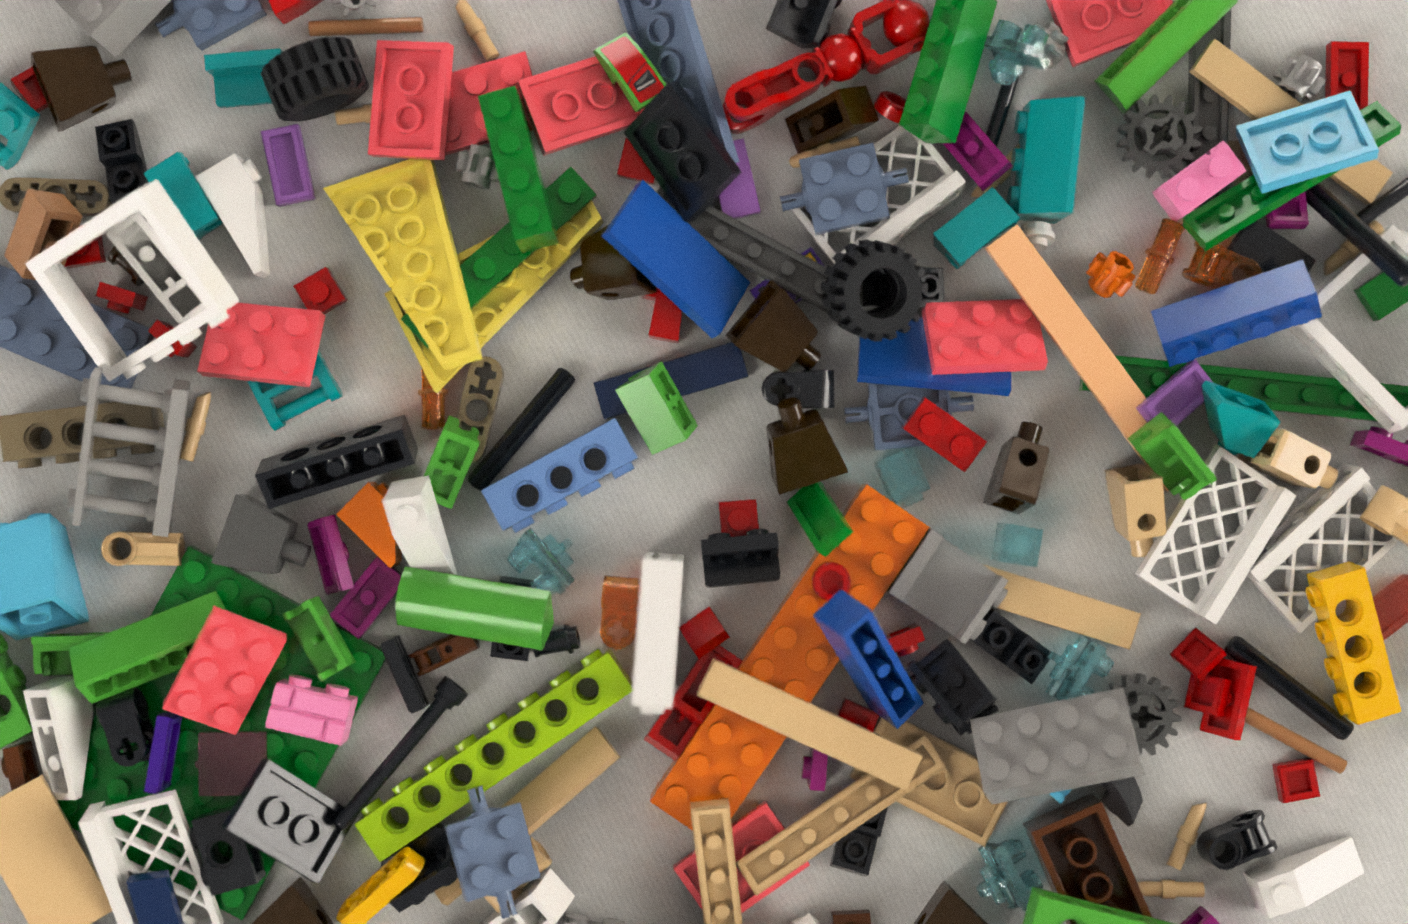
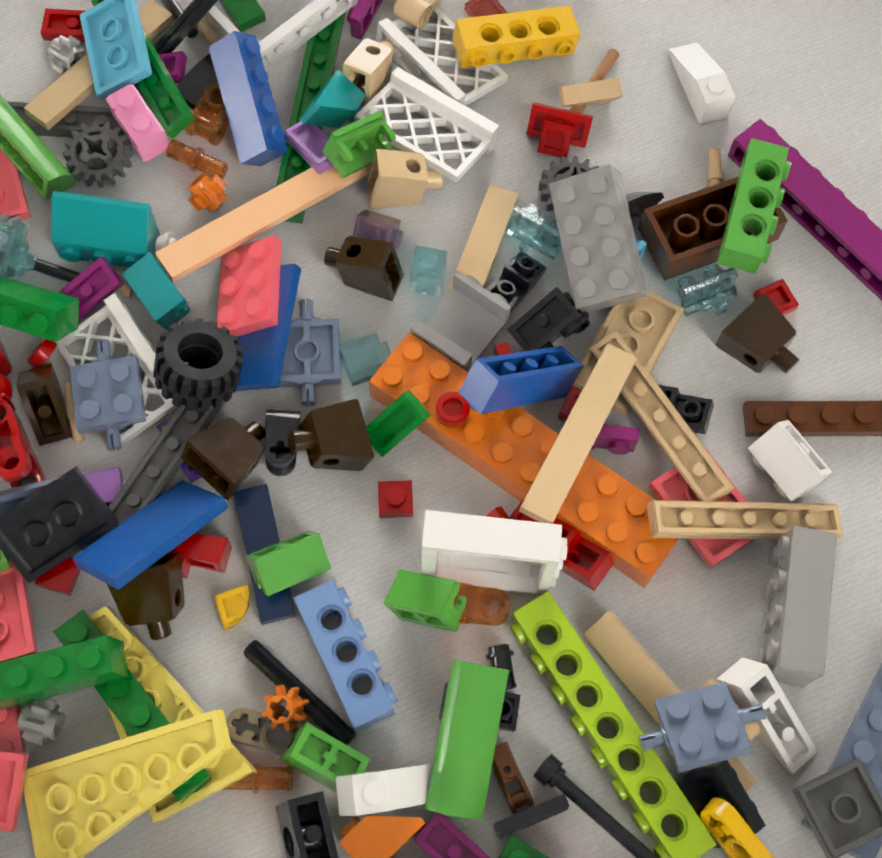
camera: 90 degrees left, 20 degrees down
(489, 412) = (275, 710): none -> orange gear
(549, 559) = (423, 672): clear light blue hips -> none
(612, 351) = (233, 605): none -> yellow tile
(619, 559) = (426, 600): none -> bright green hinge
(740, 558) = (429, 489): black bracket -> none
(944, 434) = (330, 321): red plate -> none
(1065, 482) = (378, 227): none -> brick
(1187, 836) = (671, 160): tan piece -> none
(1198, 654) = (523, 144): red tile -> none
(1243, 838) = (674, 125): black piece -> none
(1274, 737) = (590, 93): none -> tan piece
(1290, 688) = (550, 85): black axle -> none
(1296, 780) = (630, 83): red tile -> none

